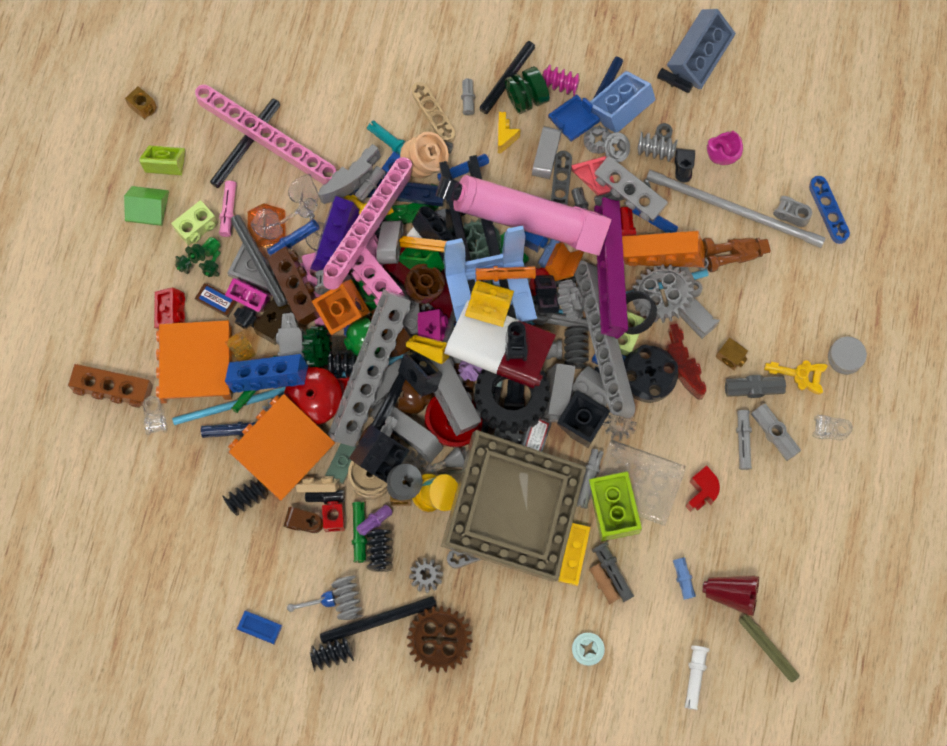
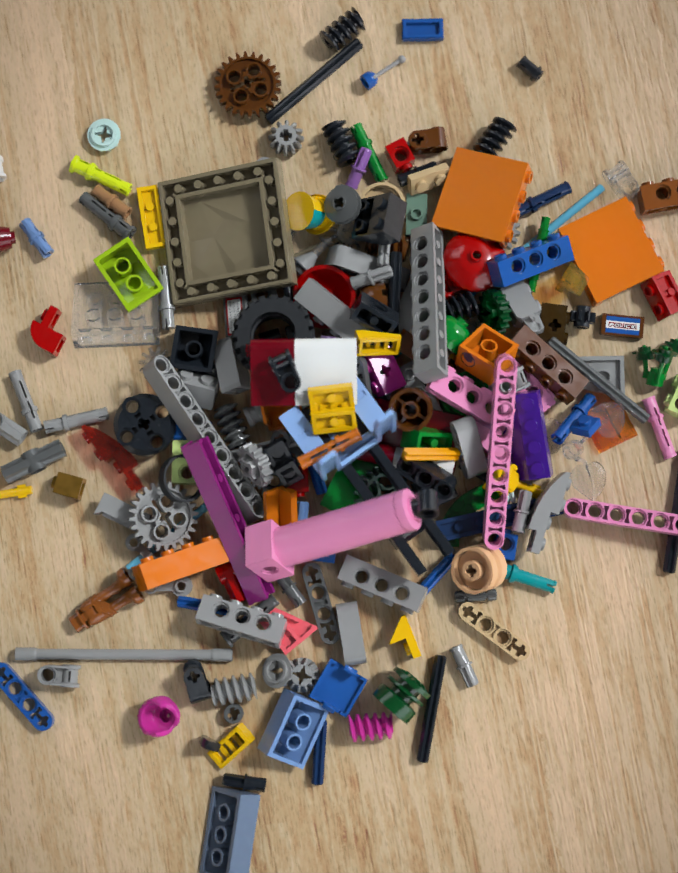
camera: 155 degrees right, 10 degrees up
(182, 549) = (530, 69): none -> black pin
(248, 295) = (590, 339): dark pink brick -> none
(287, 225) = (585, 425): none -> blue plate
(346, 598) = (351, 86): light grey piece -> none
(407, 412) = (371, 277): none -> light grey axle
(505, 164) = (353, 566): none -> light grey brick
(612, 618) = (92, 172): none -> neon yellow pin
(664, 115) = (244, 734): none -> yellow slope
(692, 116) = (209, 744): none -> black tile
(706, 406) = (75, 420): none -> light grey pin

